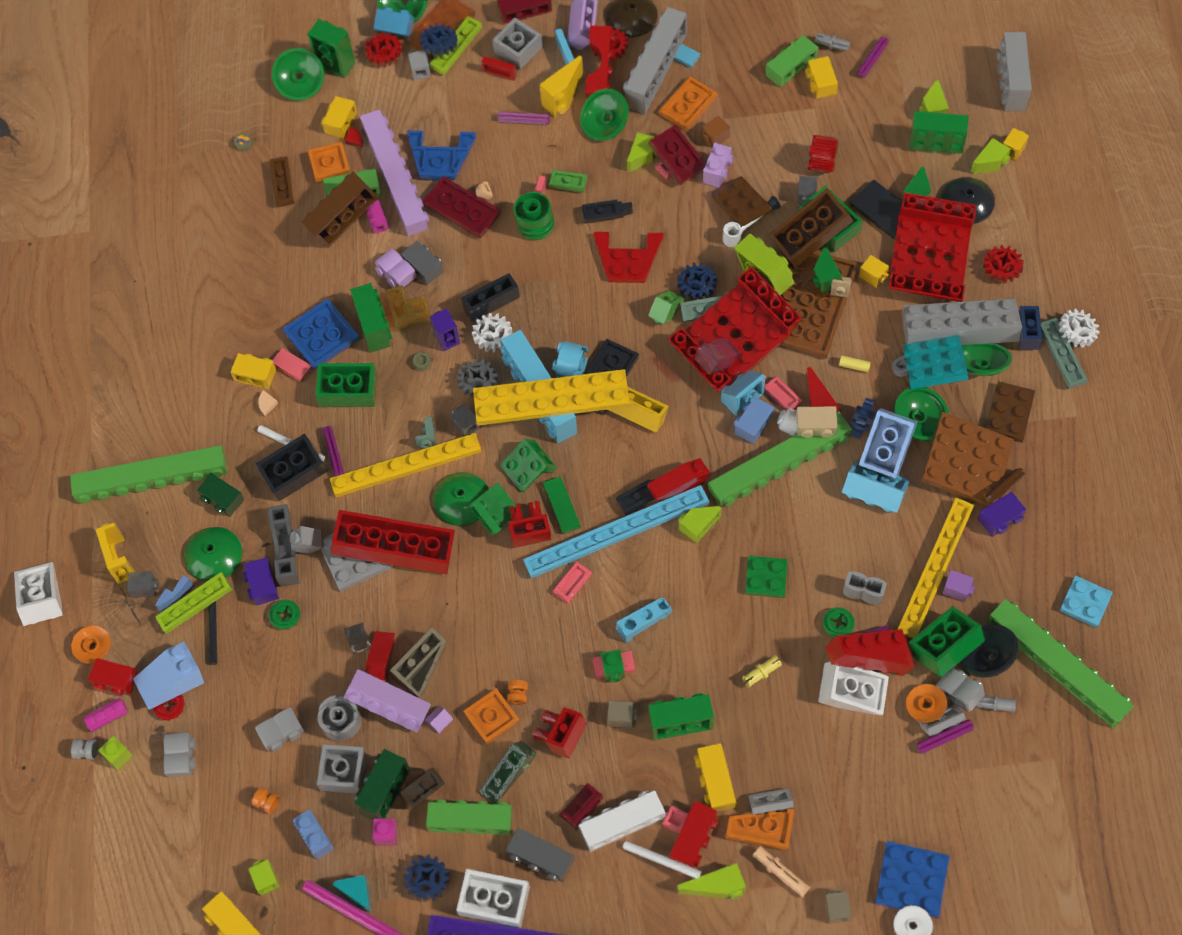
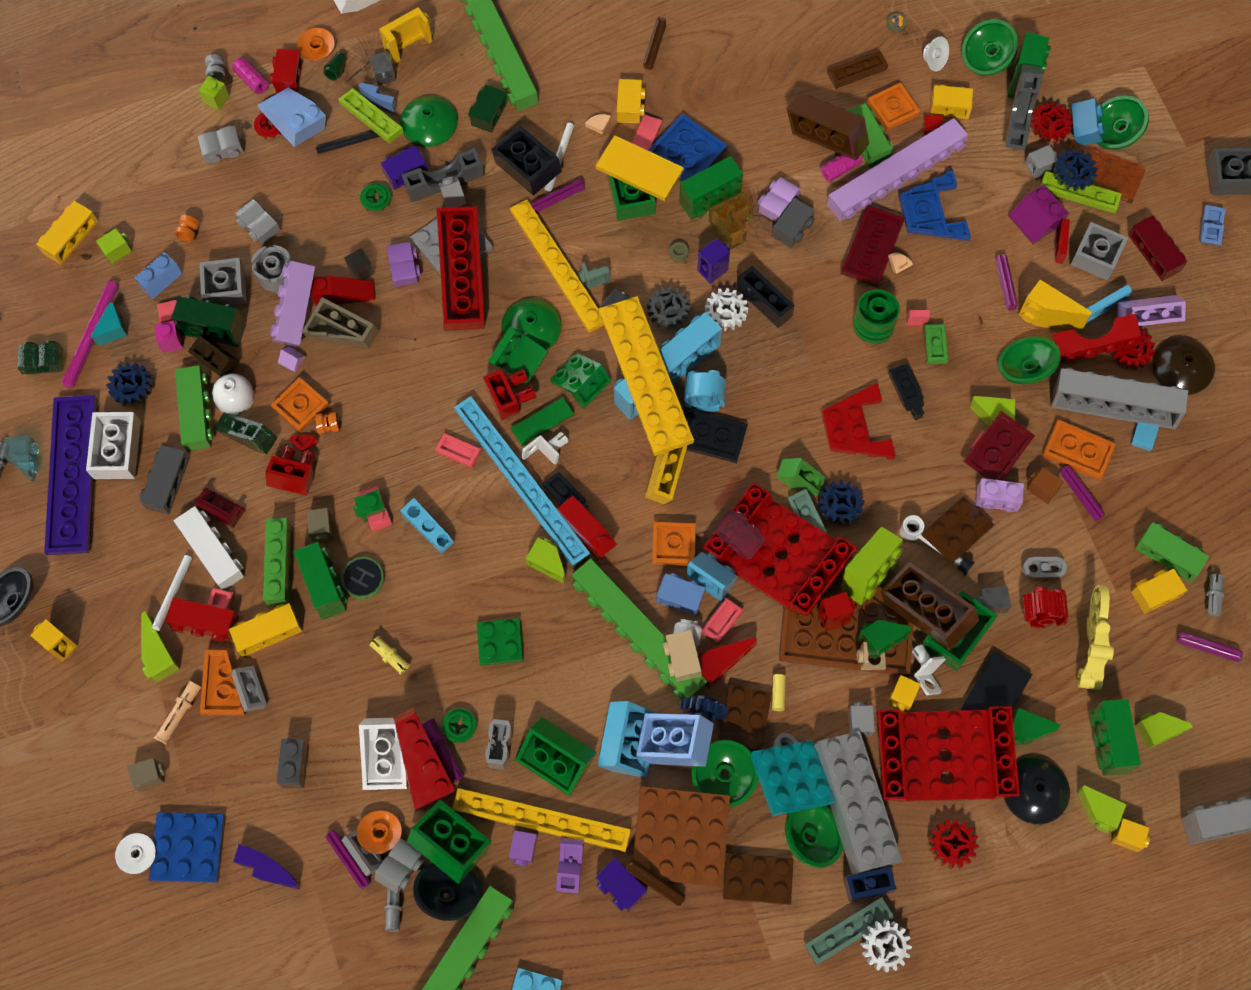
camera: 75 degrees right, 5 degrees up
(123, 630) = (334, 68): none -> dark green cone
(197, 340) = (654, 44): none -> reddish brown axle
(287, 117) = (936, 53): none -> white piece
(336, 368) = (639, 168): none -> yellow tile
(354, 832) = (165, 310): none -> coral tile
(367, 599) = (402, 264): none -> medium lavender brick
(386, 72) = (1025, 96): none -> dark grey arch
(463, 779) = (233, 393): none -> white cylinder
(469, 78) = (1038, 214): none -> magenta slope
(530, 720) = (303, 442): none -> red tile
(590, 503) = (549, 448): none -> white bracket
(651, 757) = (277, 562): none -> bright green brick
(680, 682) = (362, 578): none -> black tile
(705, 417) = (673, 543): none -> orange plate
(726, 109) = (1082, 493): none -> magenta axle
(786, 151) = (1043, 568): none -> light grey plate
(800, 296) = (836, 611): none -> red brick
(850, 769) = (292, 763): none -> dark grey brick
(853, 247) = (928, 666): none -> white bracket
(866, 121) = (1098, 636): none -> light yellow piece
(873, 387) = (746, 716): none -> reddish brown plate
(881, 545) = (555, 756): none -> green slope
(890, 306) = (861, 719): none -> light grey brick
(943, 808) = (264, 867): none -> dark purple slope
(981, 554) = (569, 865): none -> medium lavender slope

